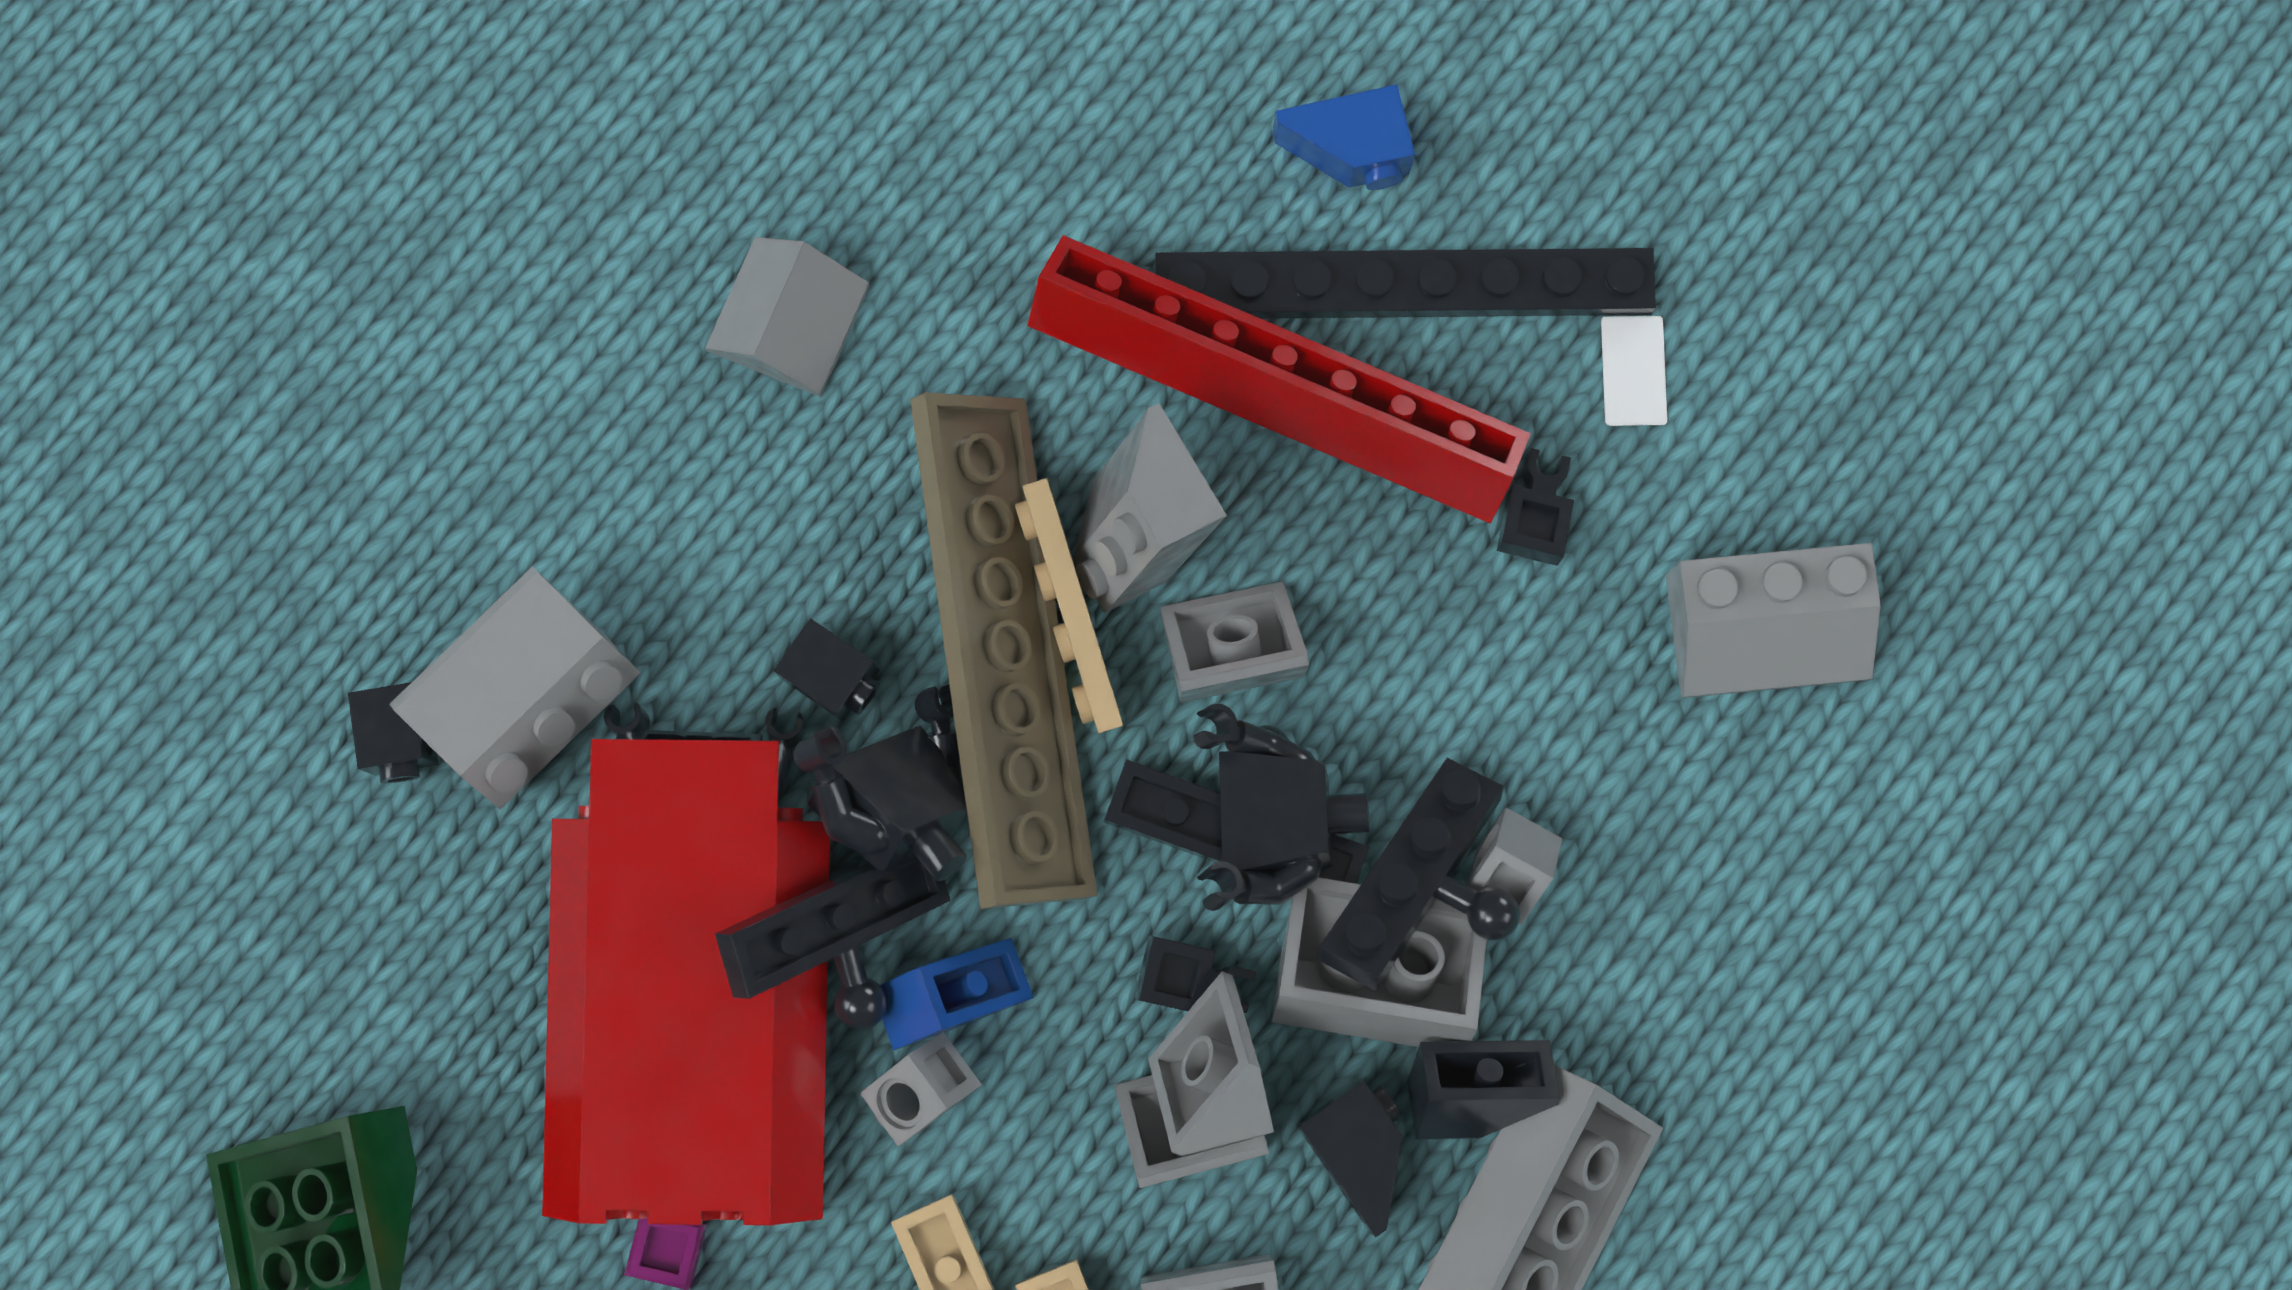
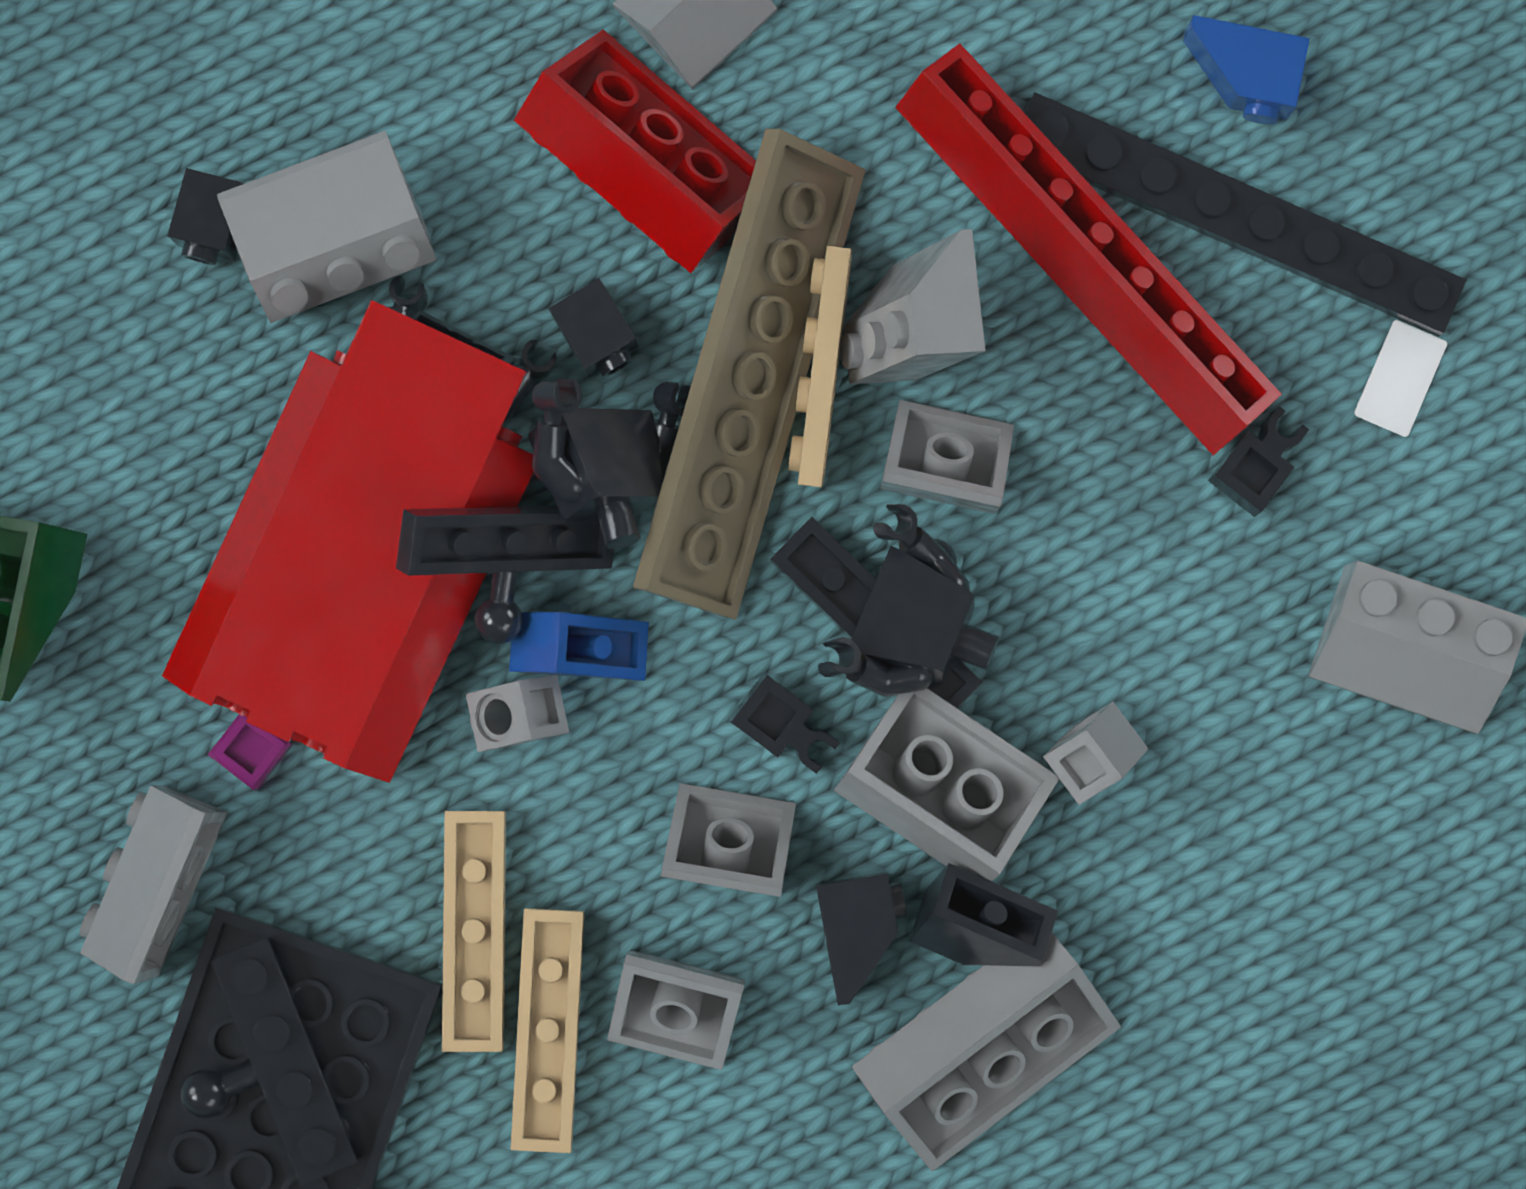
camera: 30 degrees right, 5 degrees up
(795, 475) = (640, 148): none -> red slope
(1210, 1075) = (761, 811): light grey slope -> none
(1417, 872) = (1011, 722): black plate -> none

